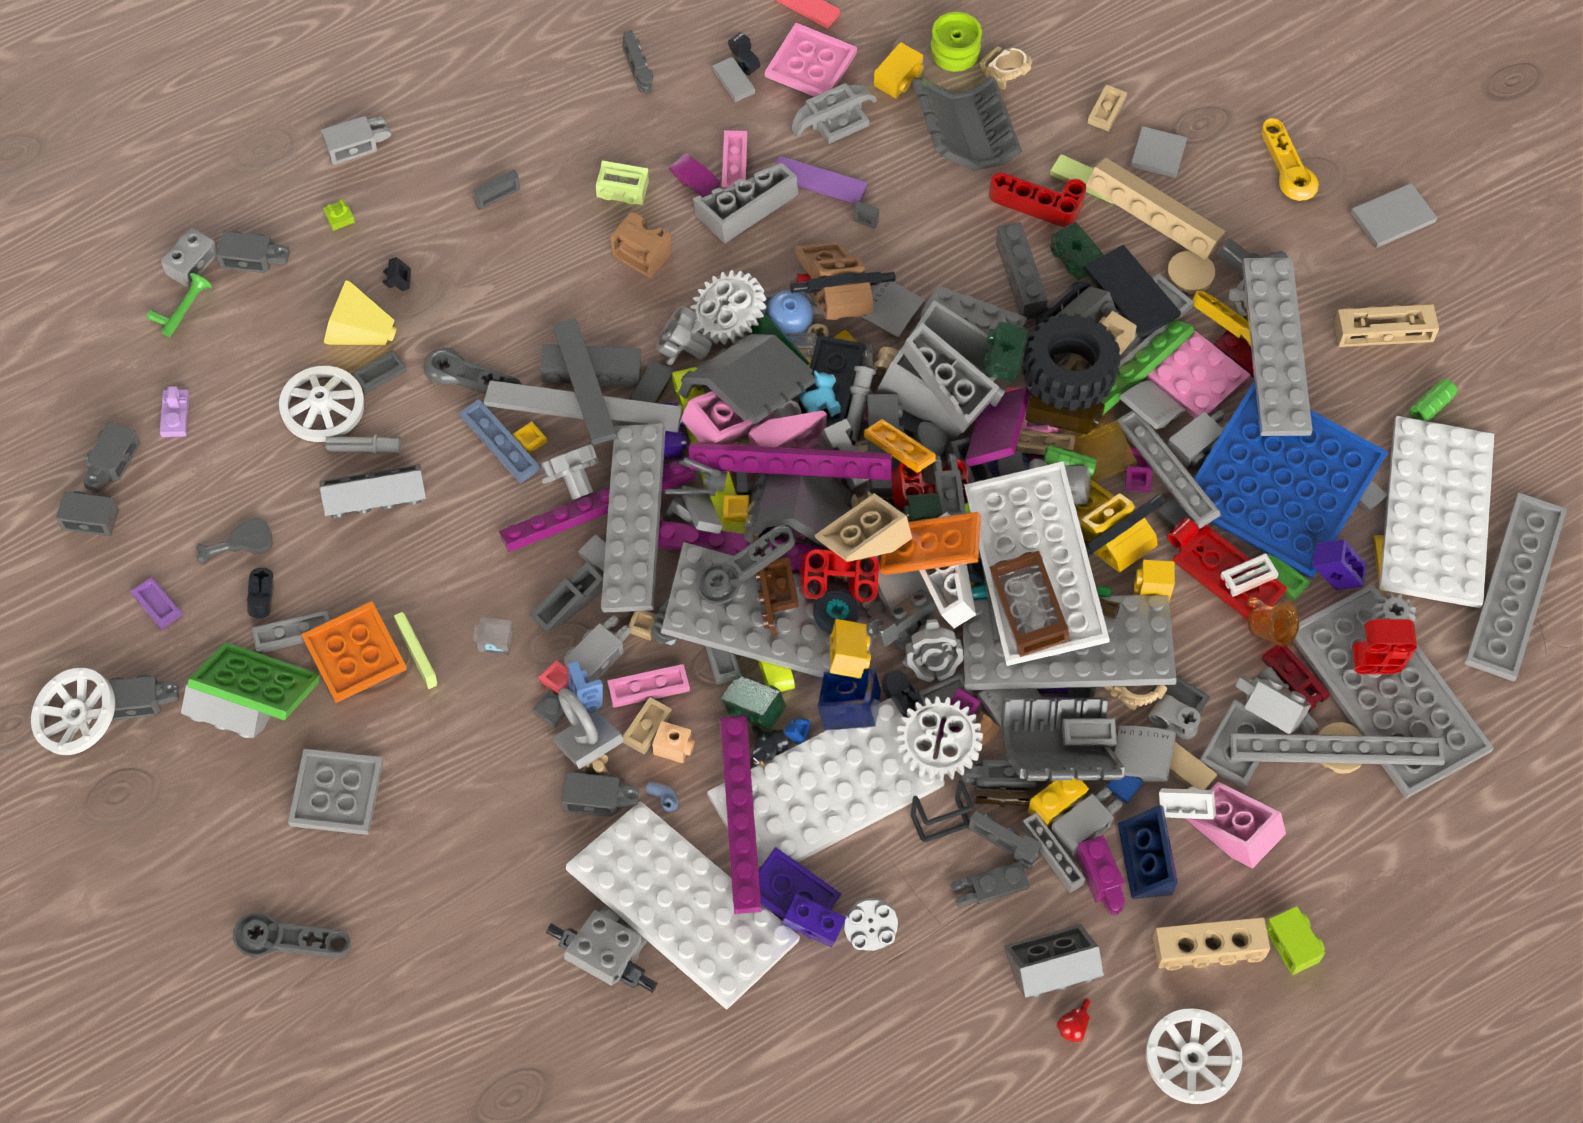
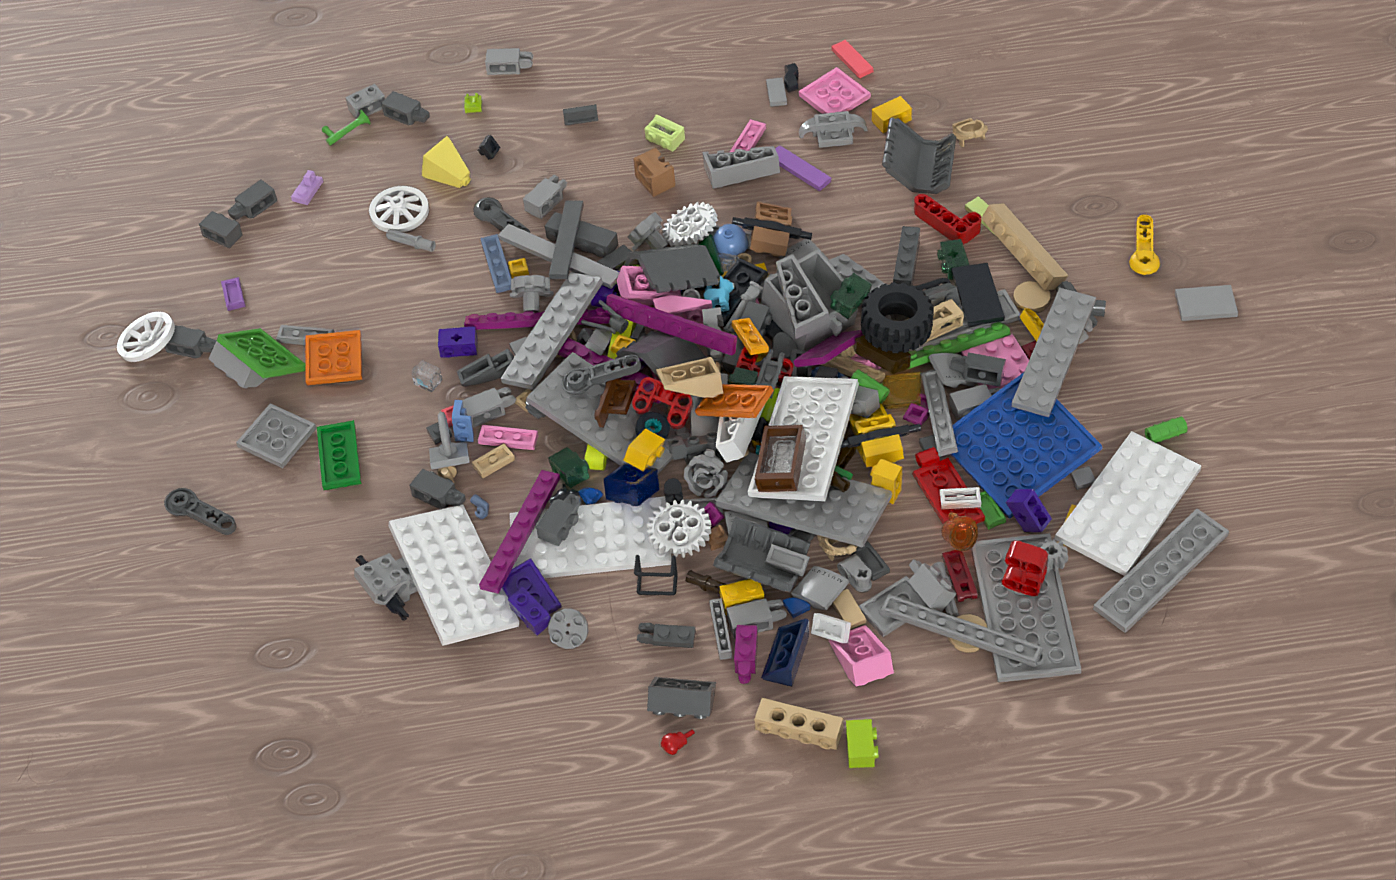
camera: 30 degrees right, 10 degrees down
(249, 536) = (311, 273): dark grey piece -> none
(260, 593) = (297, 305): black piece -> none
(372, 490) = (398, 266): brick -> none
(379, 371) = (445, 201): dark grey tile -> none
(415, 650) = (372, 369): yellowish green tile -> none
(437, 790) = (338, 455): none -> green plate
(498, 570) = (457, 342): none -> dark purple brick
(511, 324) = (544, 196): none -> light grey hinge
(637, 63) = (716, 66): dark grey hinge -> none
(673, 742) = (503, 475): light nougat brick -> none
(694, 174) = (715, 140): magenta slope -> none
(723, 665) = (565, 439): light grey tile -> none
(783, 780) = (559, 519): none -> dark grey hinge
(866, 214) = (818, 196): dark grey tile -> none
(956, 41) = (941, 106): lime wheel -> none
(994, 775) = (704, 566): dark grey hinge -> none
(1006, 838) = (699, 616): dark grey plate -> none
(1107, 107) = (1028, 176): tan plate -> none
(1159, 152) = (1051, 215): light grey tile -> none
(1191, 393) = (980, 368): none -> dark grey hinge
(1195, 1050) = (741, 787): white wheel -> none
(1386, 325) = (1157, 370): tan brick -> none

